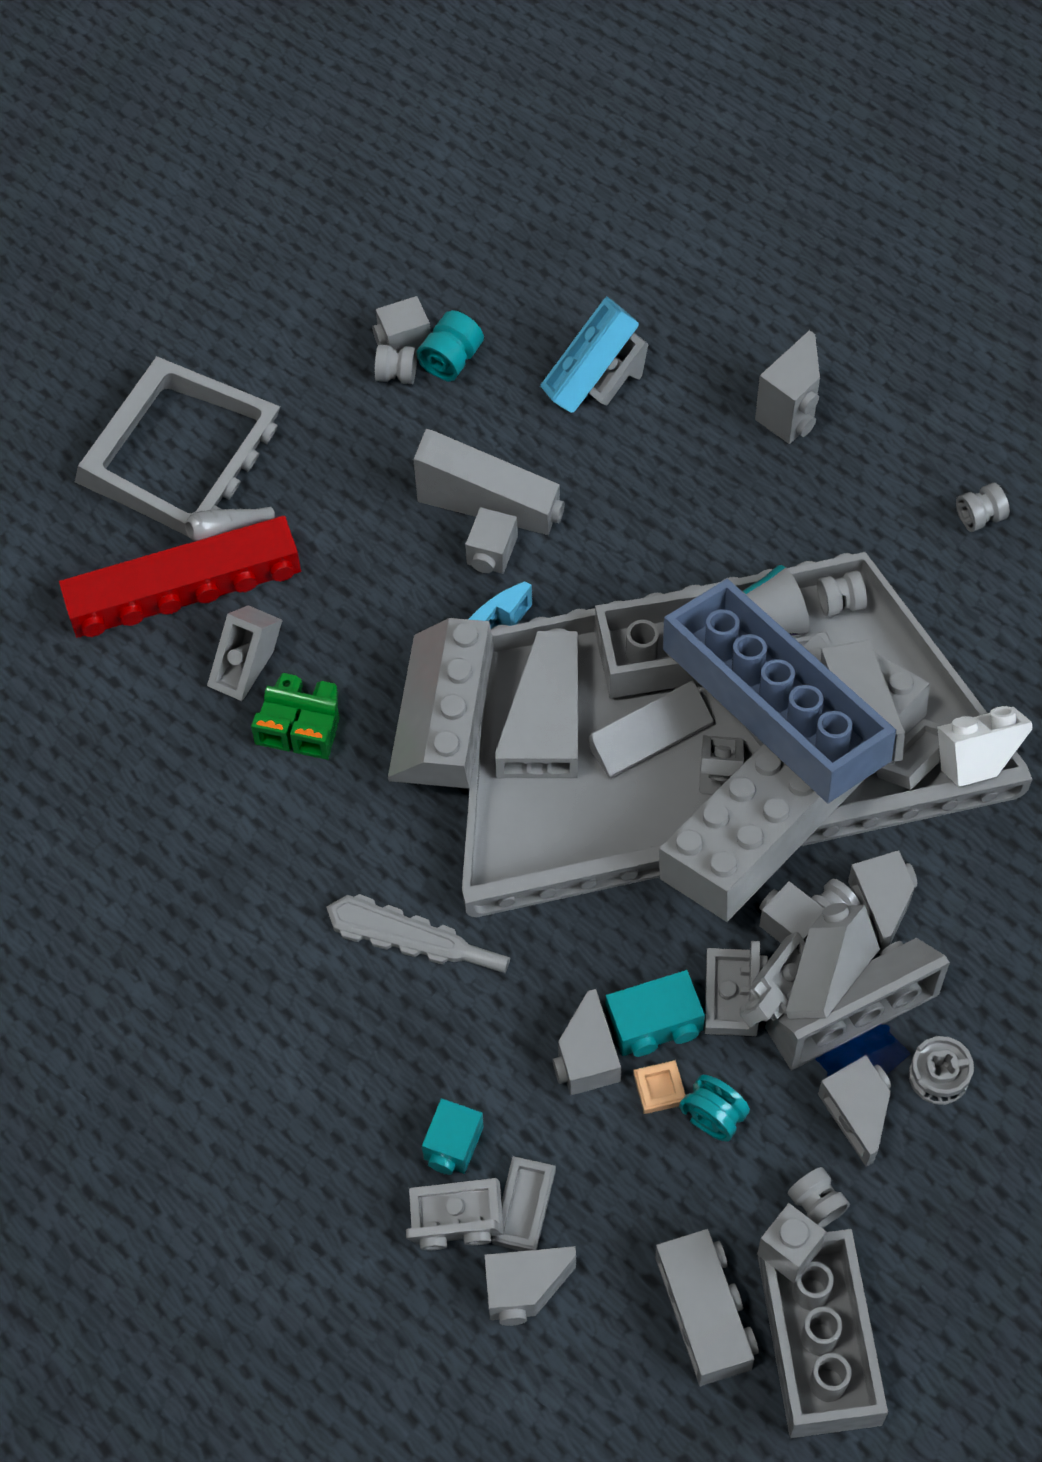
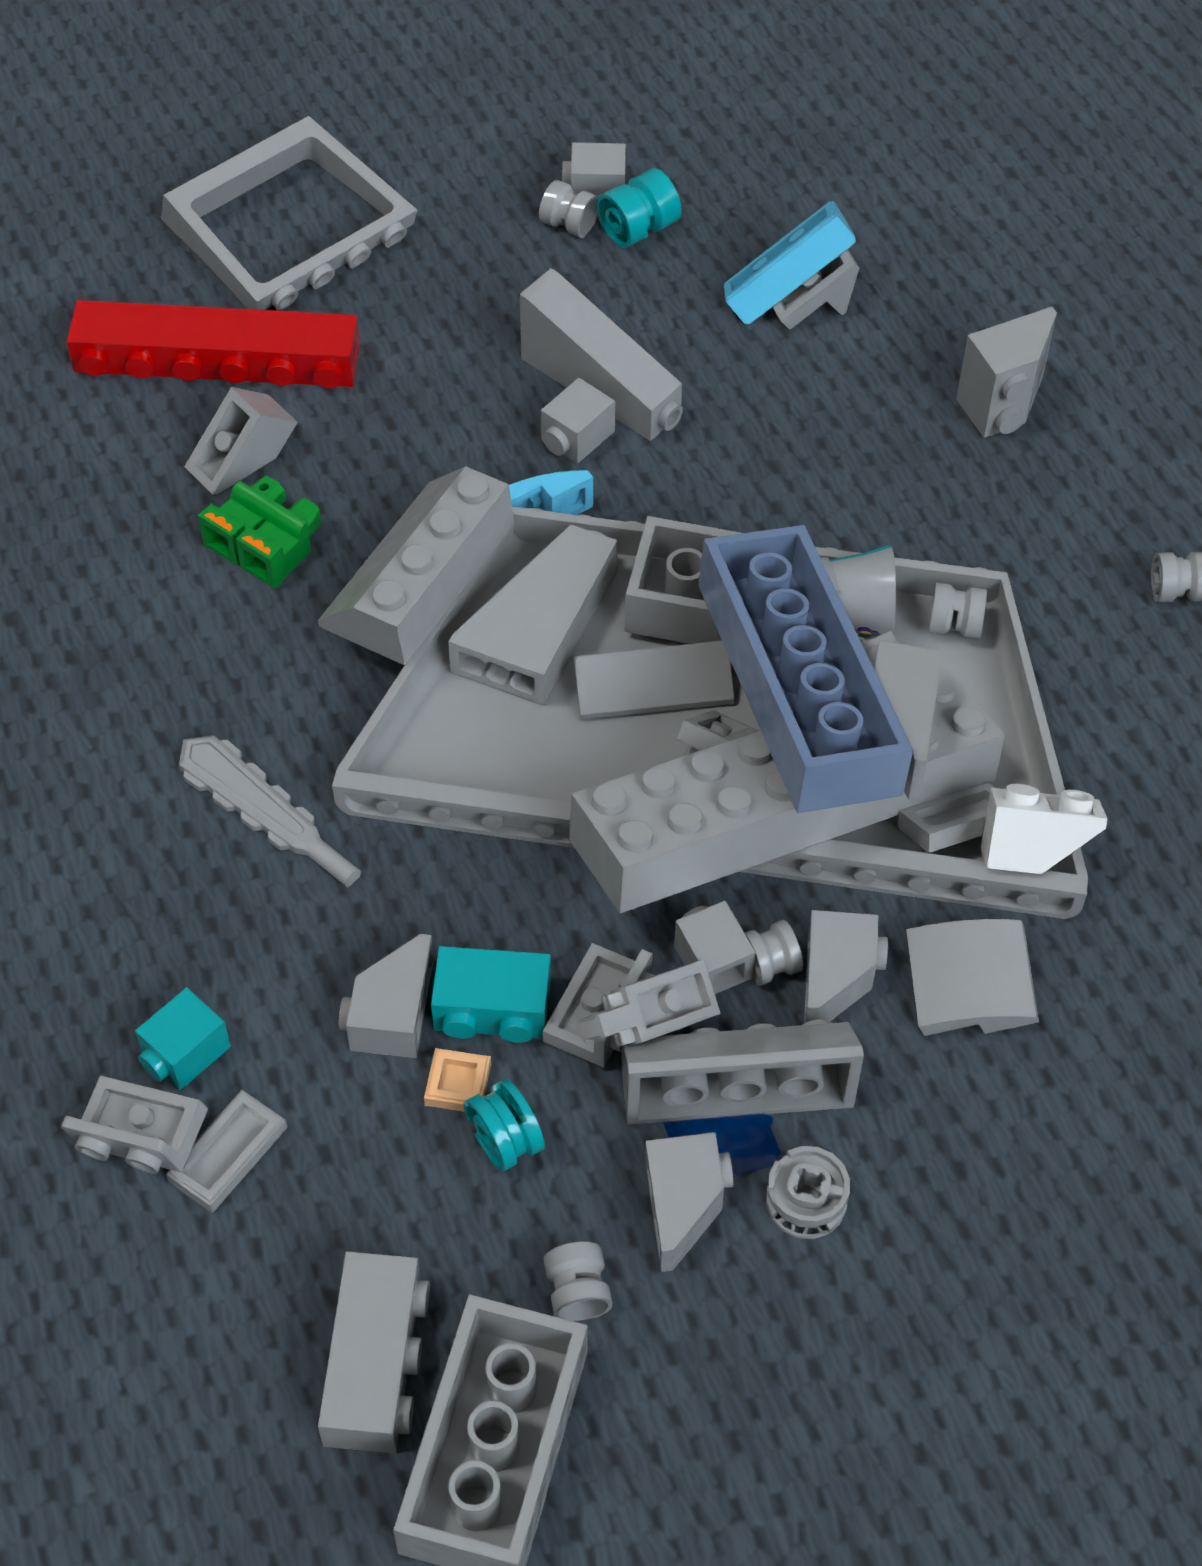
camera: 20 degrees right, 5 degrees down
(215, 522) = (269, 295): light grey piece -> none
(525, 1281) = (176, 1235): light grey slope -> none
(791, 1242) = (495, 1305): light grey brick -> none
(832, 959) = (727, 1003): light grey slope -> none
(977, 867) = (972, 975): none -> light grey slope

